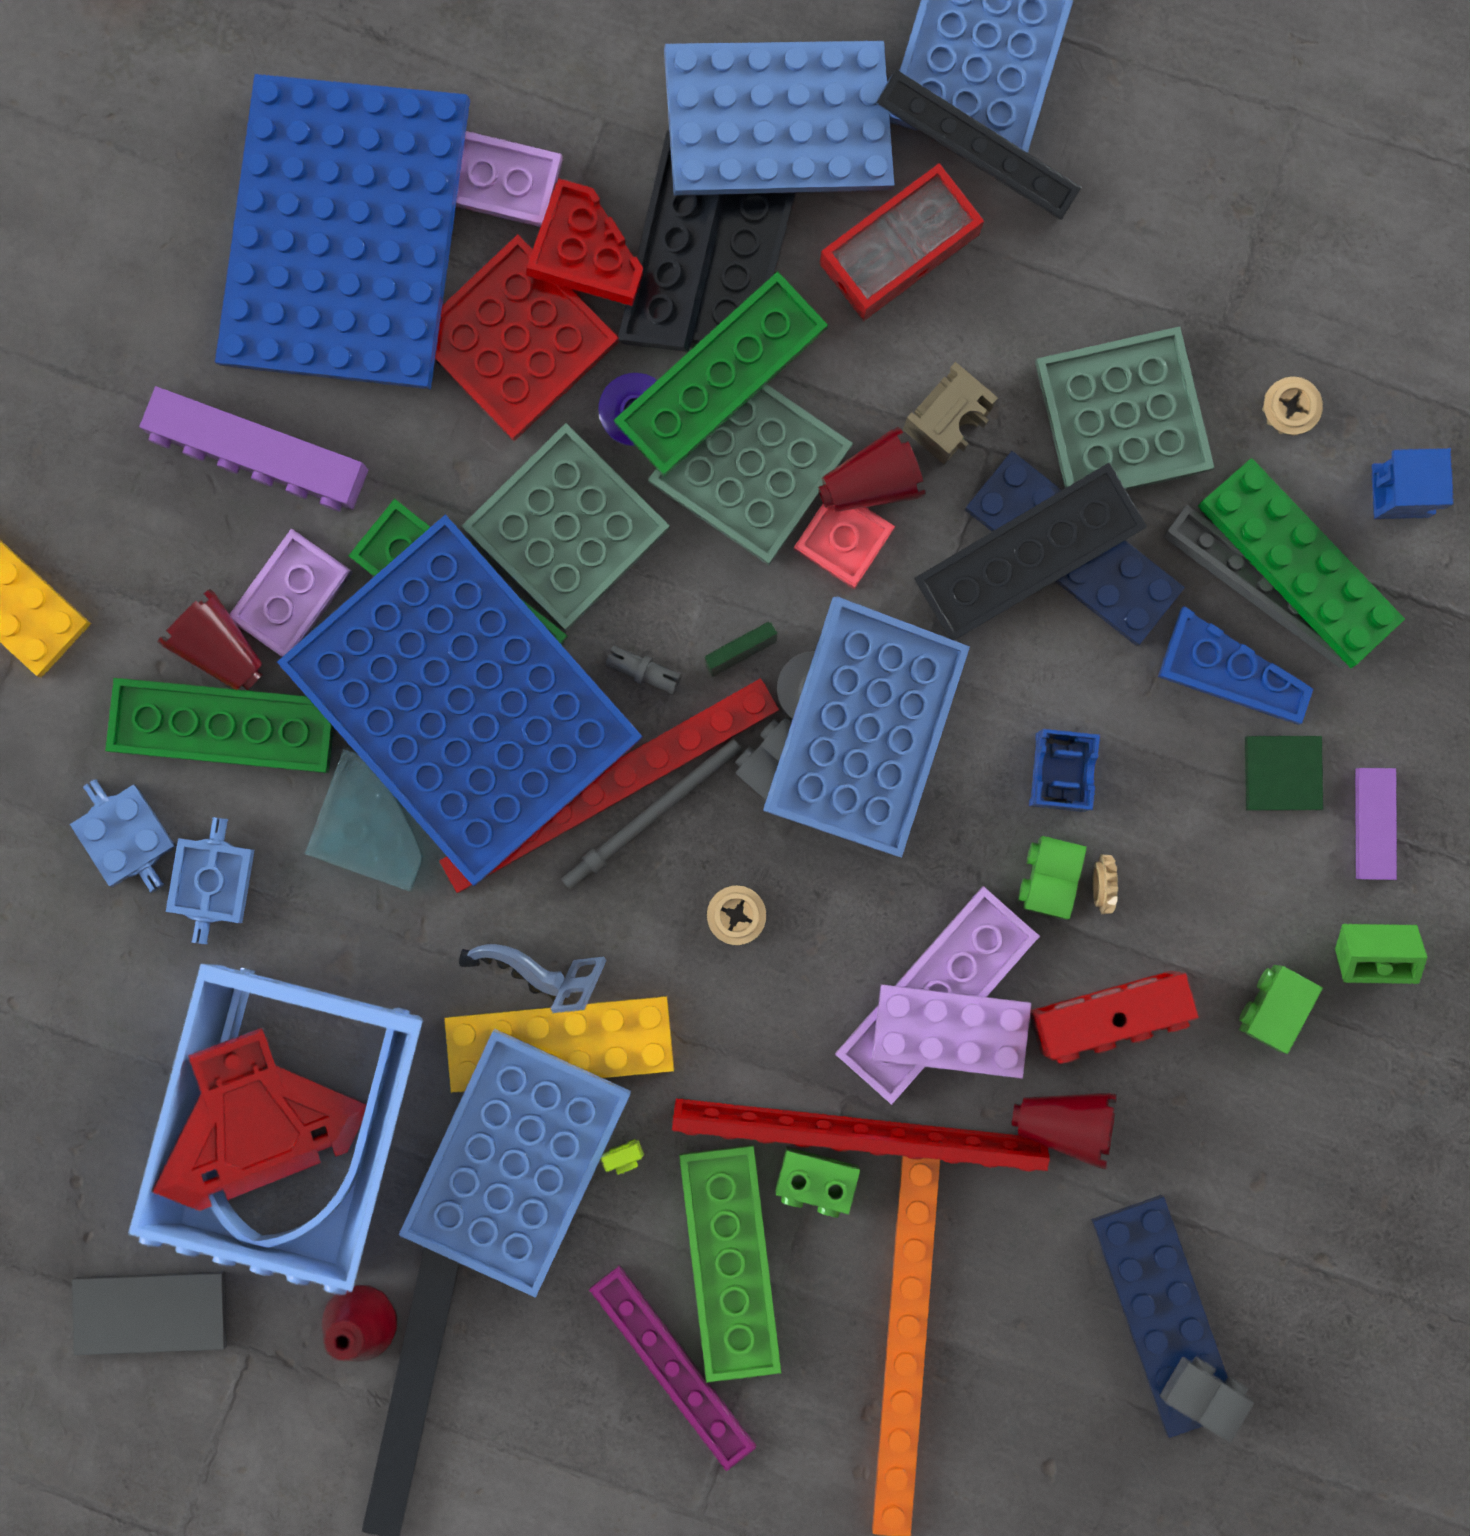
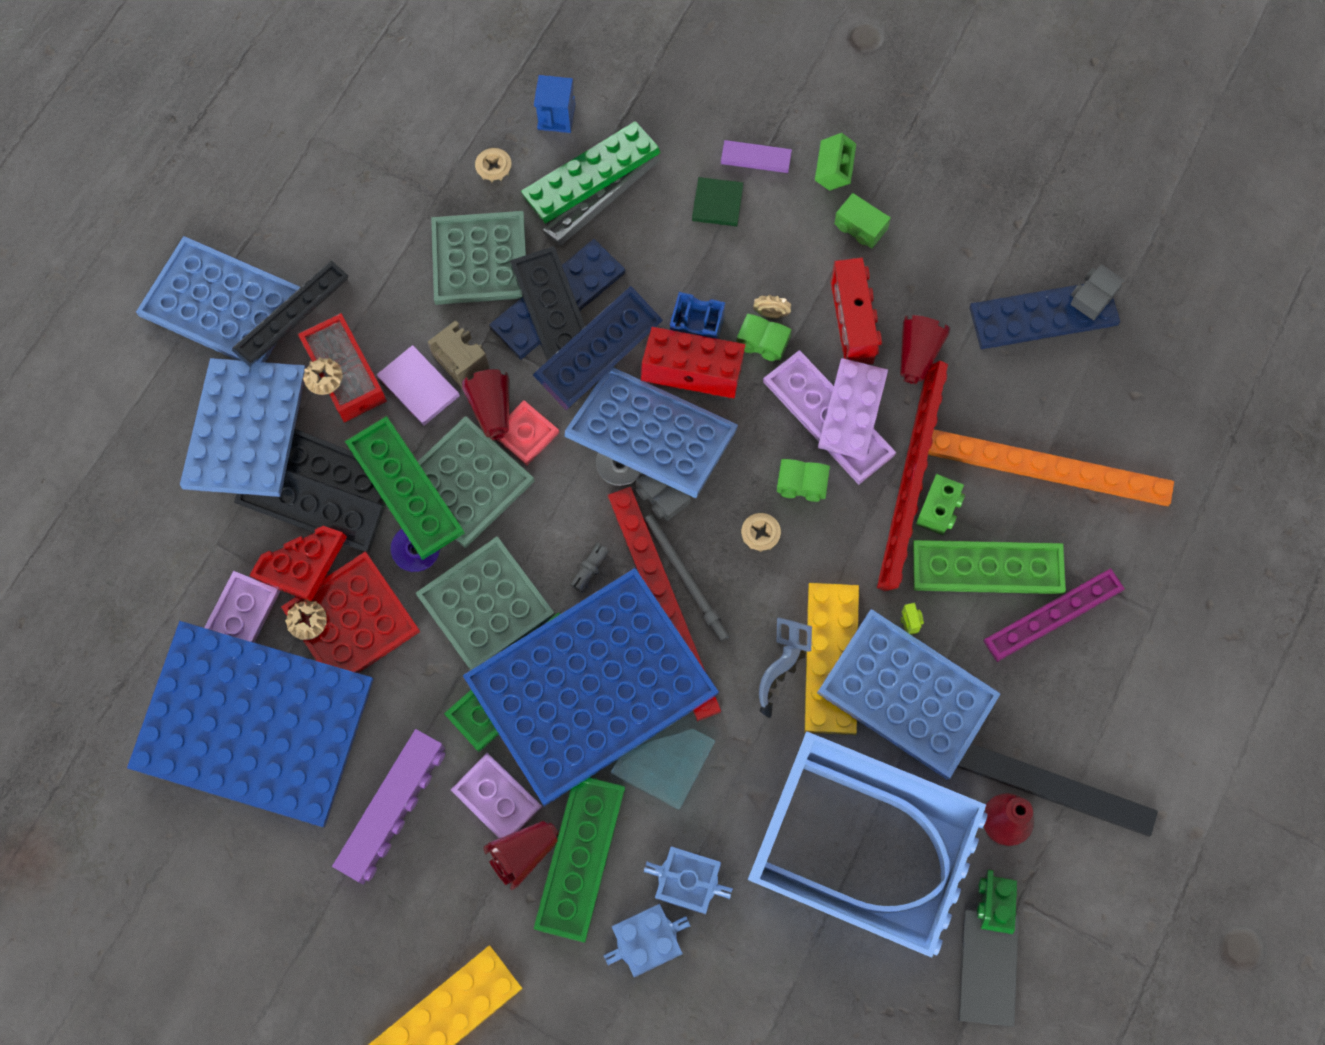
camera: 85 degrees left, 15 degrees down
(234, 1319) = (998, 903): none -> green bracket
(252, 1124) = (863, 867): red plate -> none
(500, 291) = (317, 621): none -> tan gear
(741, 648) = (587, 499): dark green tile -> none
(827, 968) = (803, 479): none -> bright green brick
(884, 228) = (327, 384): none -> tan gear
(896, 362) = (418, 385): none -> lavender tile
(990, 624) = (597, 348): none -> dark blue plate
(990, 773) = (692, 362): none -> red brick
(1219, 666) = (648, 224): blue wing -> none

